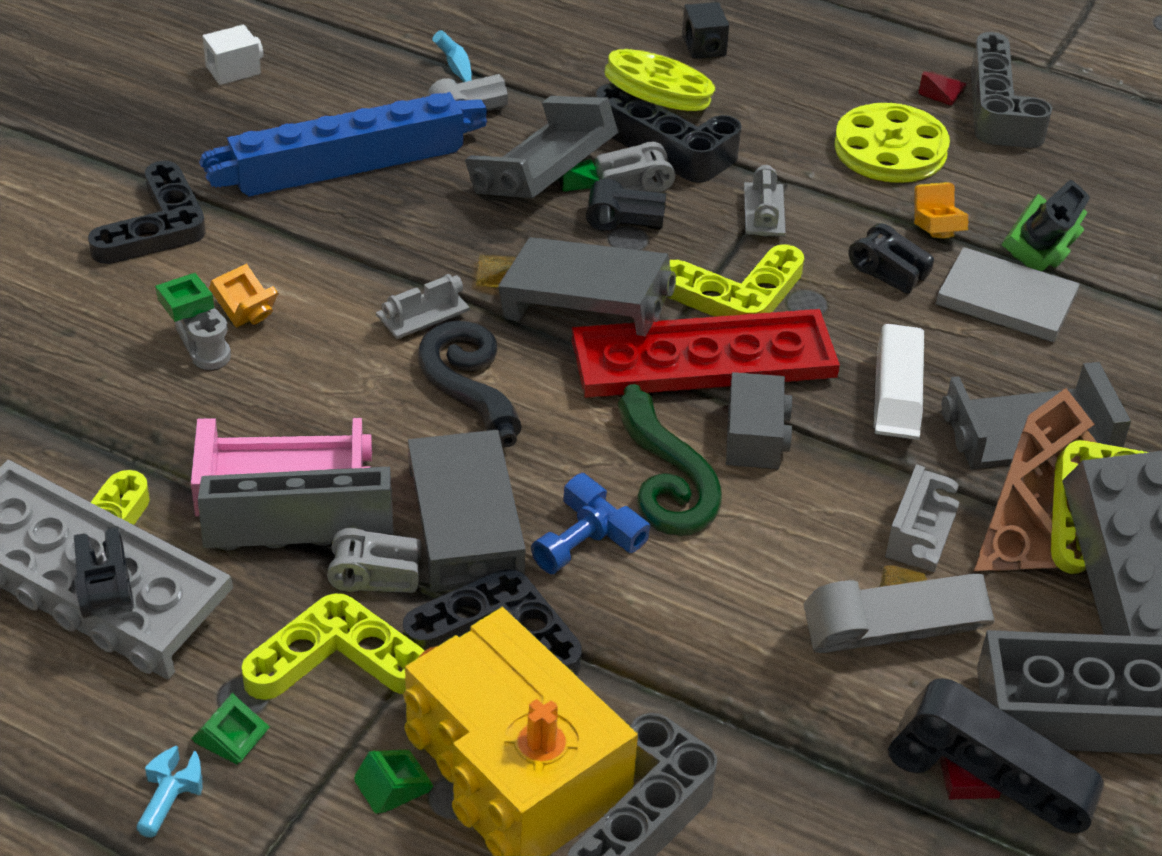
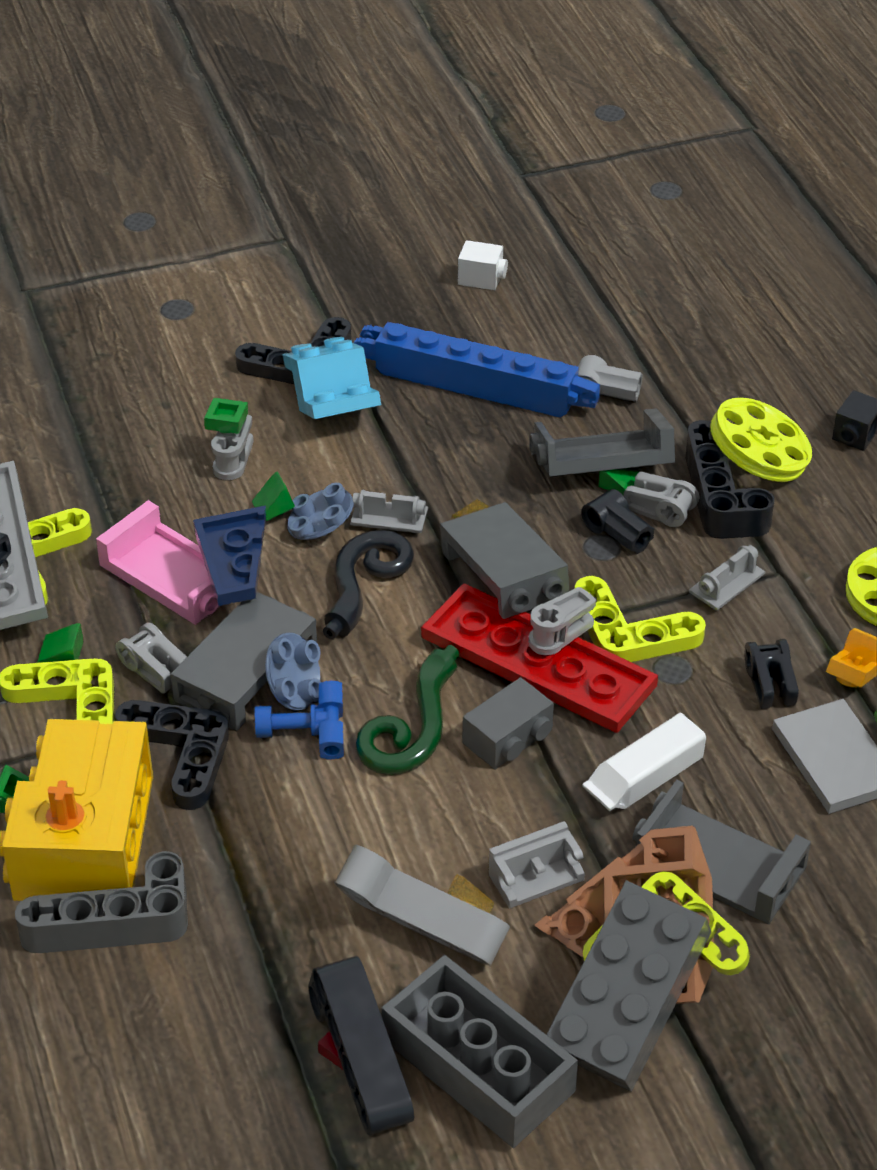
camera: 45 degrees right, 0 degrees up
(232, 215) = (331, 378): none -> medium azure bracket
(243, 296) = (283, 439): light orange bracket -> none
(266, 610) = (62, 644): none -> green slope
(293, 506) = (142, 591): dark grey brick -> none
(303, 353) = (274, 496): none -> green slope
(354, 414) = (232, 552): none -> dark blue wing
(362, 342) = (319, 512): none -> sand blue dish
(455, 55) = (643, 345): medium azure bar -> none
(541, 501) = (293, 670): none -> sand blue dish
(706, 308) = (561, 621): none -> light grey piece

